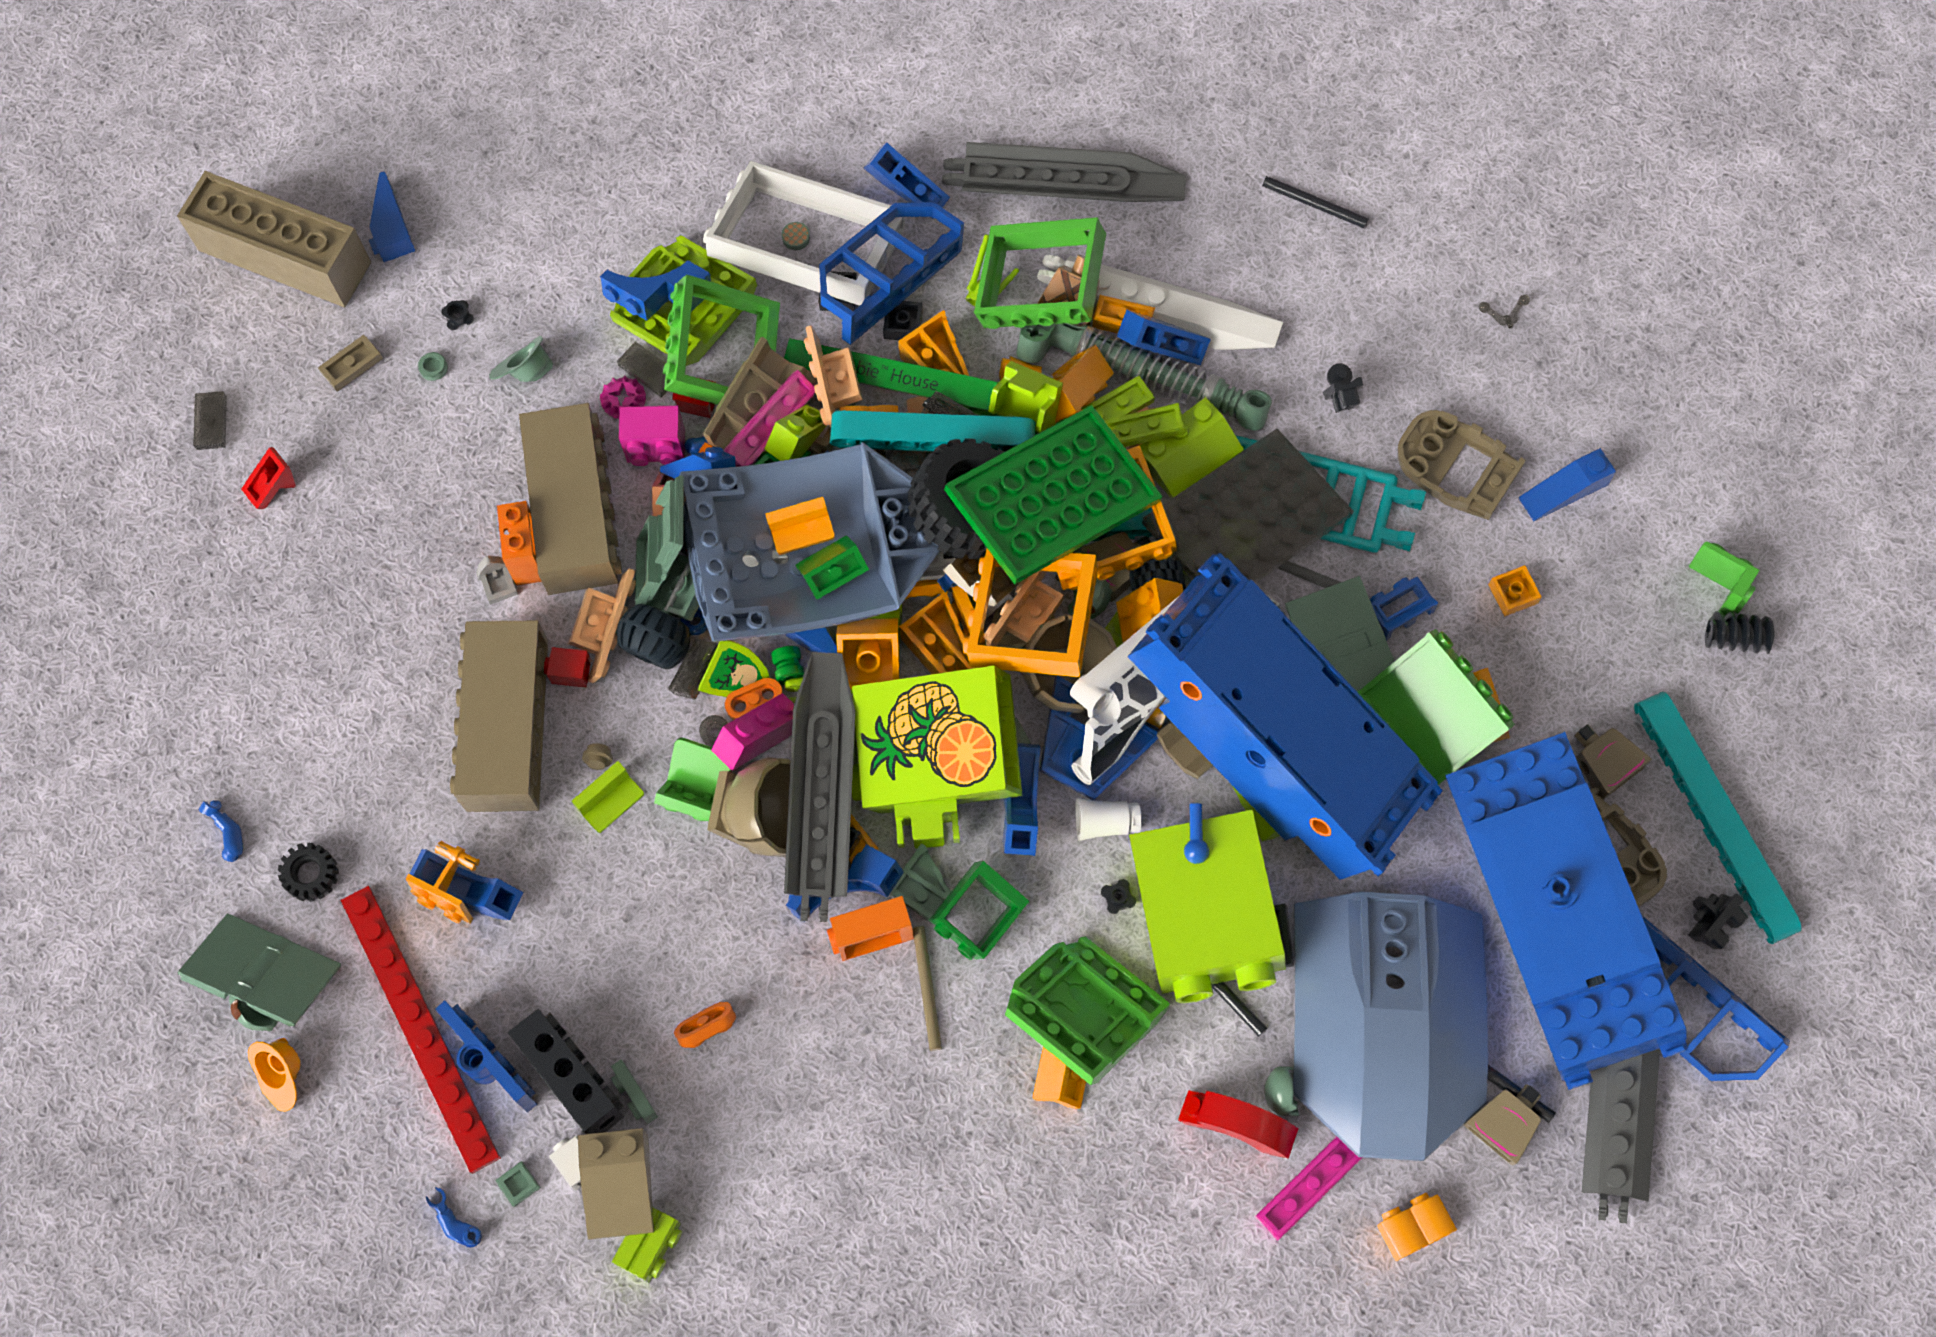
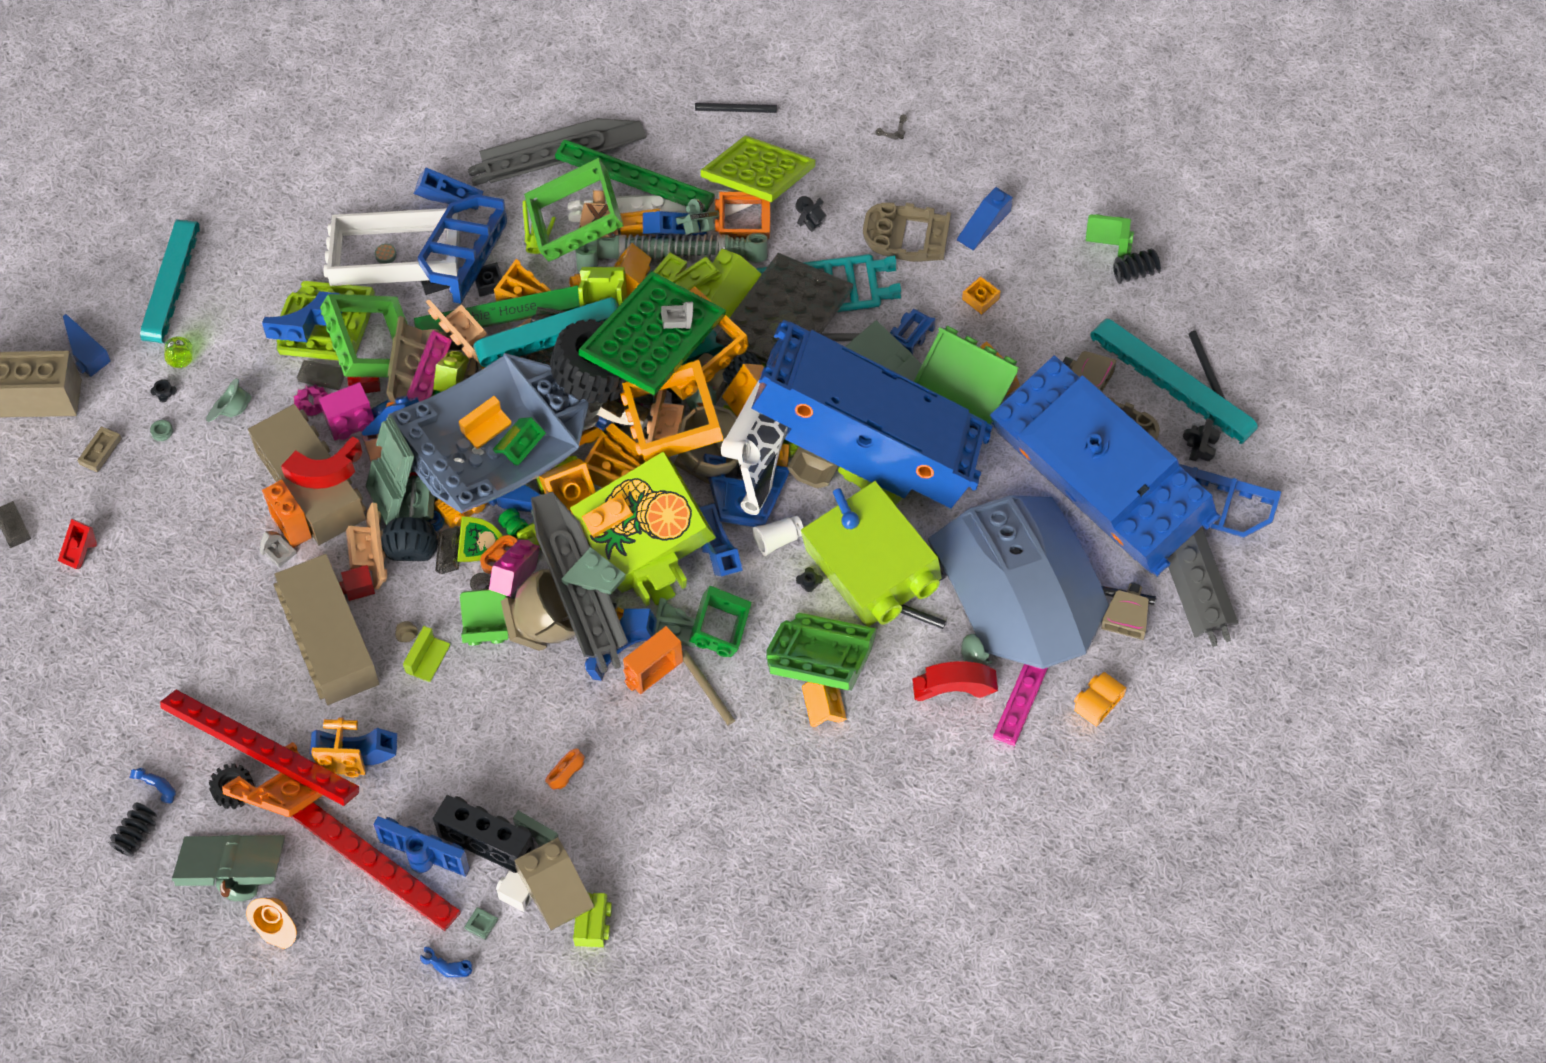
camera: 25 degrees left, 10 degrees down
(170, 882) = (132, 829): none -> black piece
(359, 841) = (260, 747): none -> red plate
(363, 912) = (277, 795): none -> orange wing
(494, 272) = (178, 352): none -> clear neon green head
(524, 172) = (168, 281): none -> teal beam
(582, 514) = (326, 472): none -> red arch
(843, 788) = (594, 572): none -> sand green wing
(891, 718) = (607, 515): none -> light orange plate
(1093, 484) = (677, 316): none -> light grey tile
(1144, 252) = (634, 175): none -> green tile
(1194, 339) = (697, 215): none -> sand green hips
(1231, 335) = (741, 198): none -> orange window
(1302, 302) = (758, 168): none -> lime plate
(1771, 811) = (1205, 363): none -> black bar

